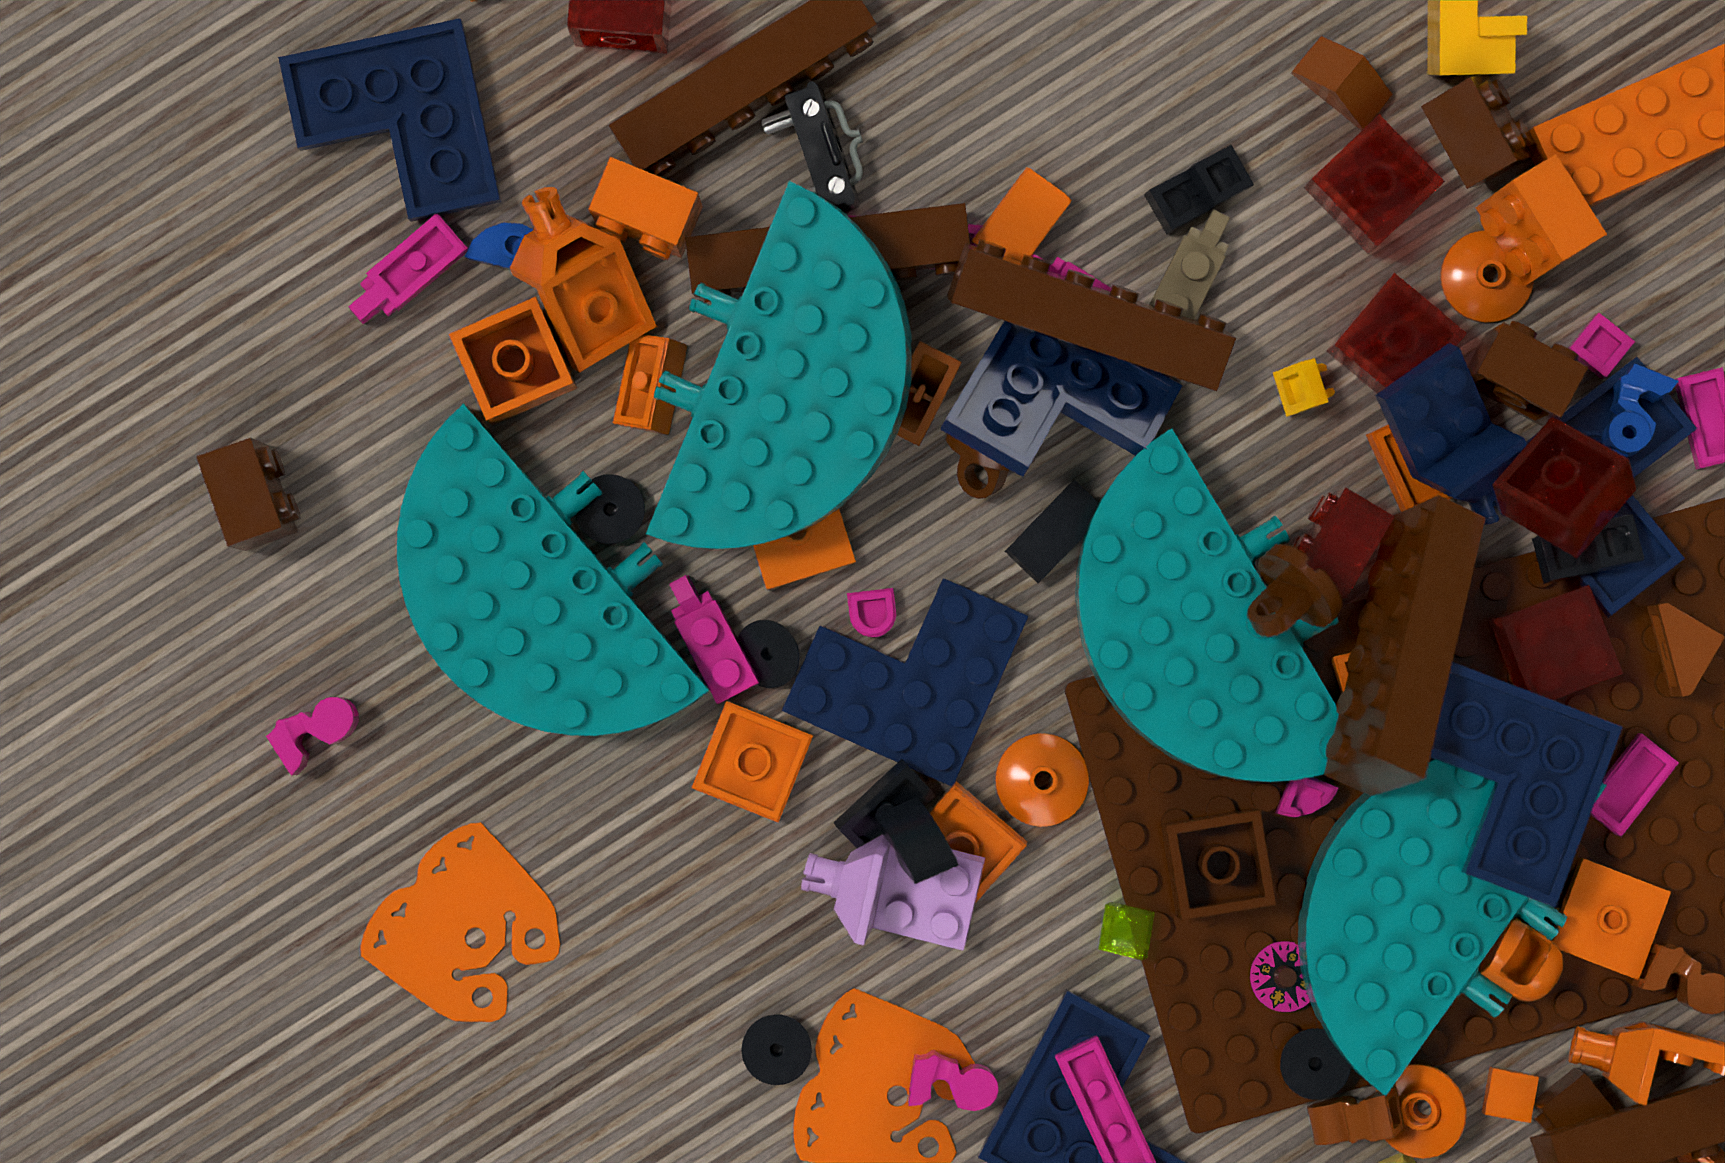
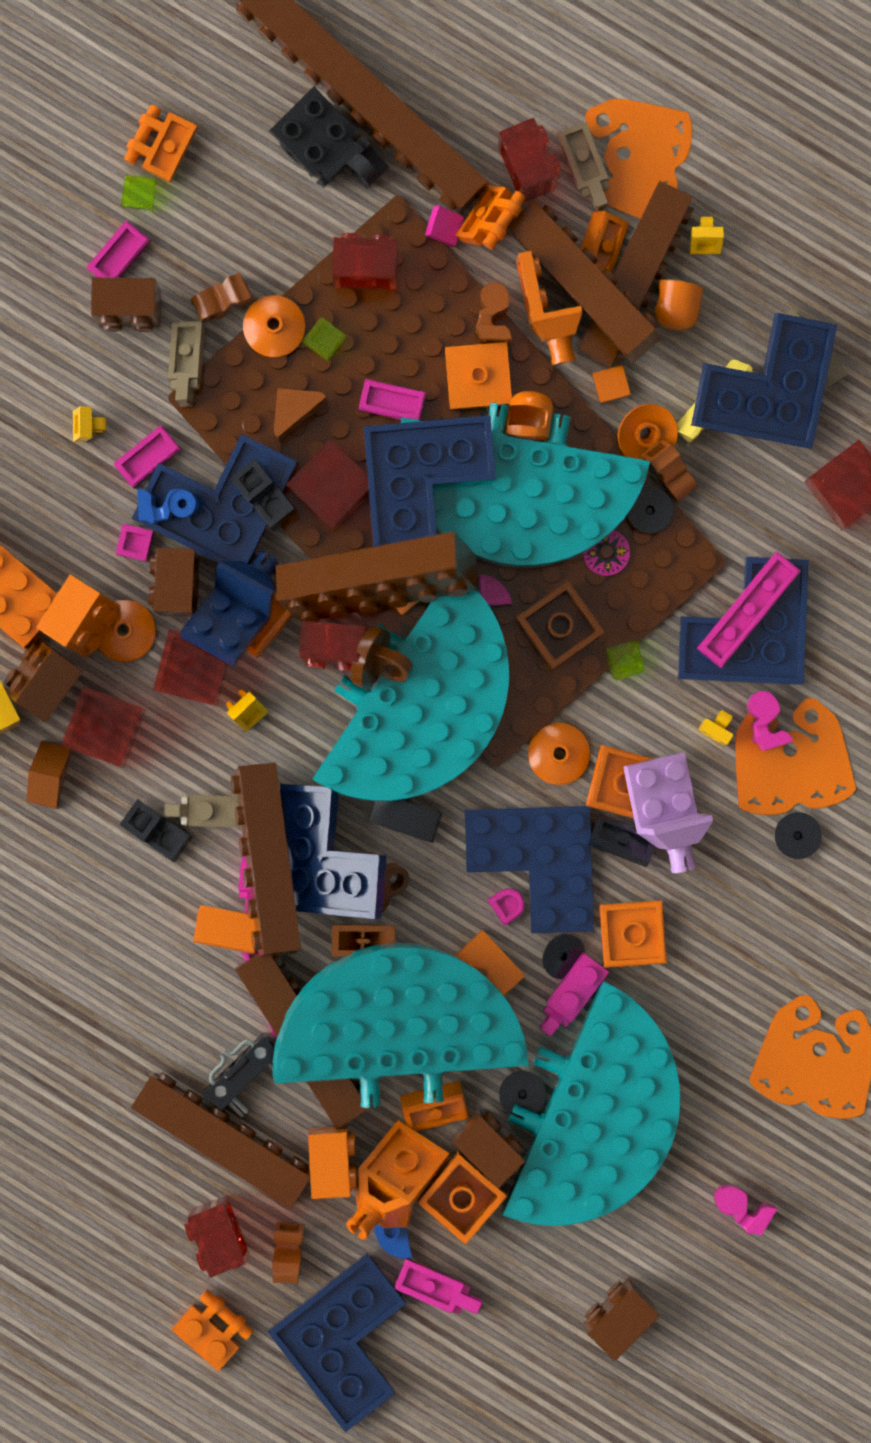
camera: 110 degrees left, 0 degrees up
(552, 95) = (287, 1252): none -> dark orange leg
(561, 429) = (488, 1147): none -> reddish brown brick
(916, 840) = (633, 813): black slope -> none
(973, 1008) = (717, 729): none -> yellow tile
(1564, 486) = (234, 527): clear red brick -> none

